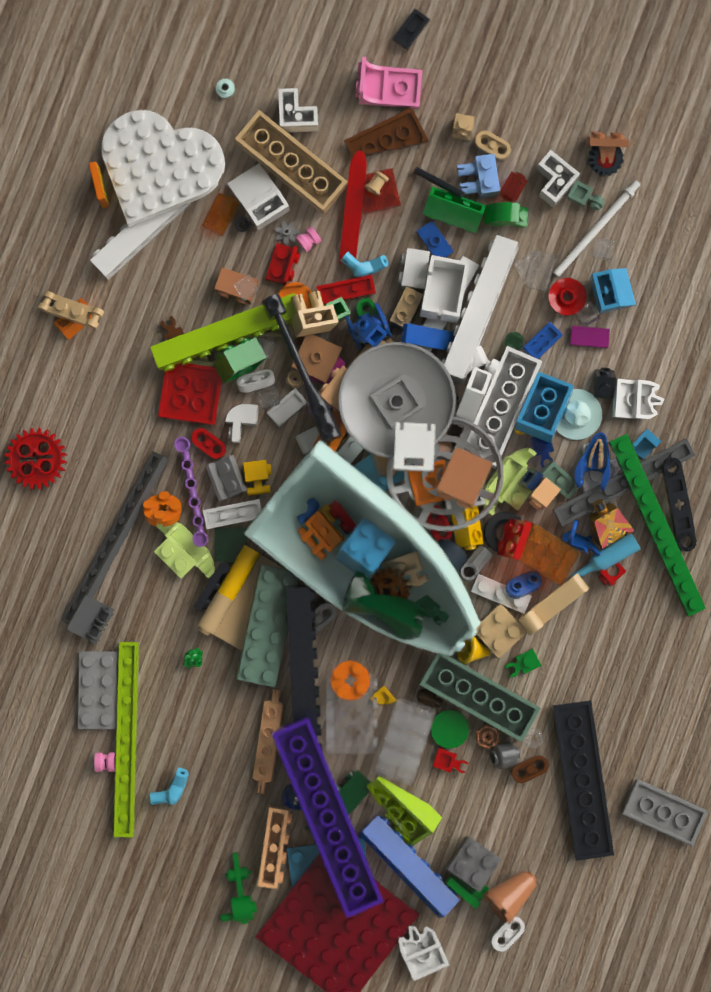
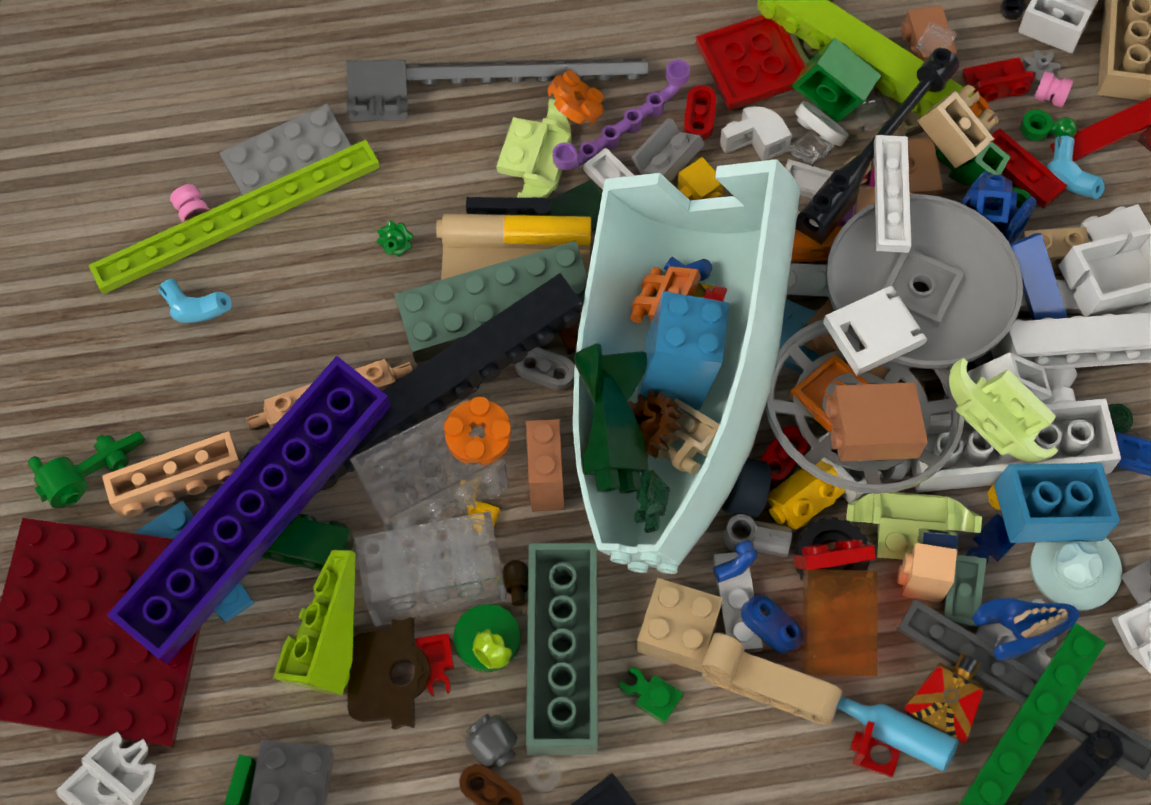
camera: 65 degrees right, 20 degrees down
(334, 250) = (1042, 120): none -> green plate
(341, 386) = (892, 194): none -> white plate
(381, 652) = (545, 465): none -> nougat brick
(409, 866) = (238, 687): brick -> none
(443, 800) = (371, 686): none -> dark brown piece
(462, 732) = (490, 650): none -> lime plate
(472, 651) = (627, 603): yellow hat -> none
(486, 584) = (737, 566): none -> blue arm
(487, 743) = (506, 688): nougat plate -> none
(492, 410) = (1002, 412): none -> yellowish green plate
(578, 541) = (889, 668): blue piece -> none
(645, 443) = (1108, 690): dark azure panel -> none

